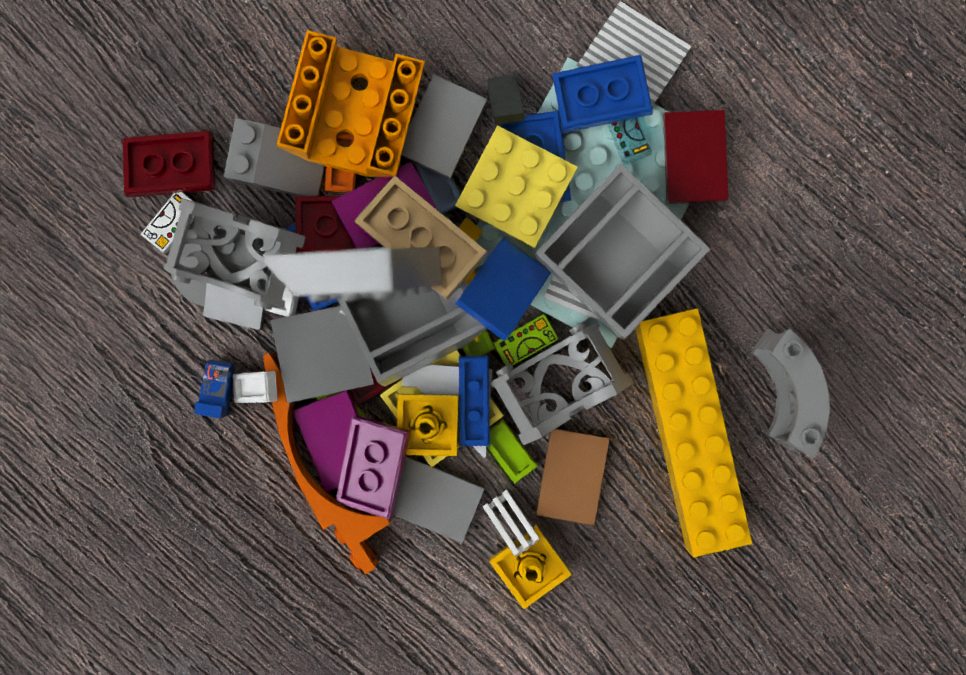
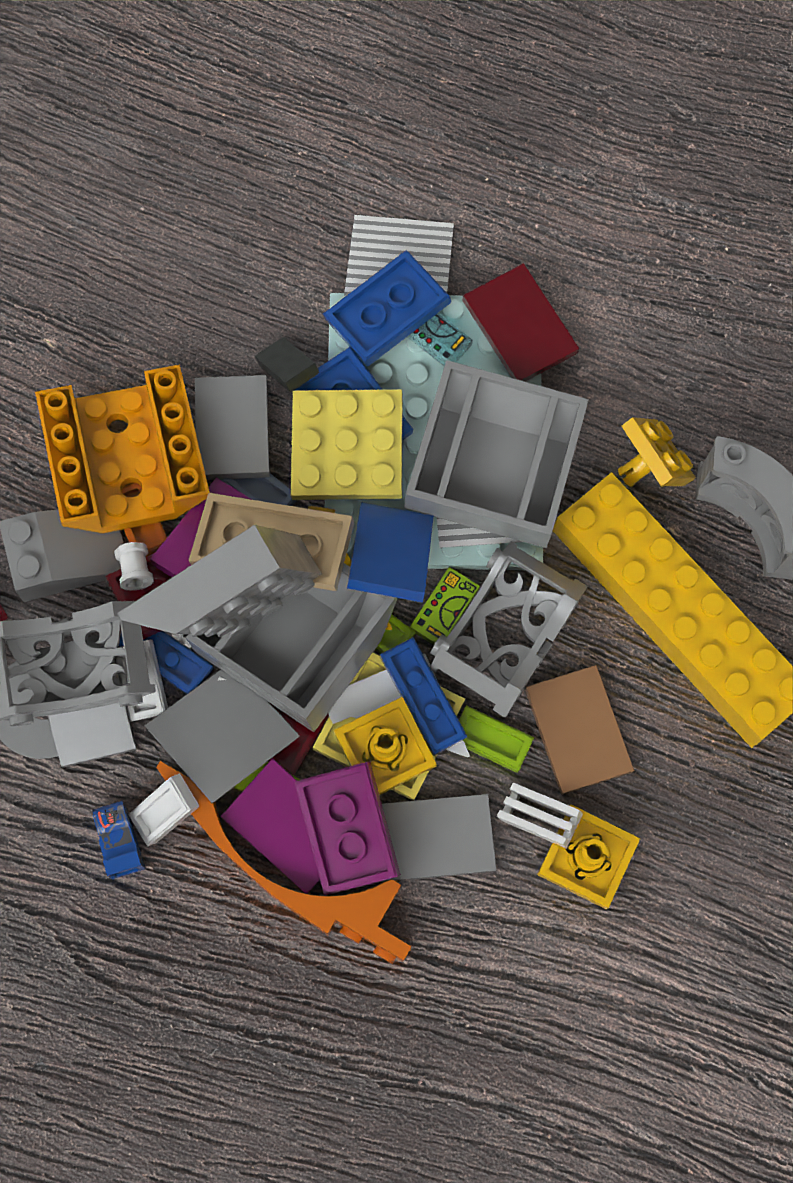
camera: 30 degrees left, 15 degrees down
(316, 201) = (133, 566): none -> white bush
(739, 309) = (655, 454): none -> yellow plate

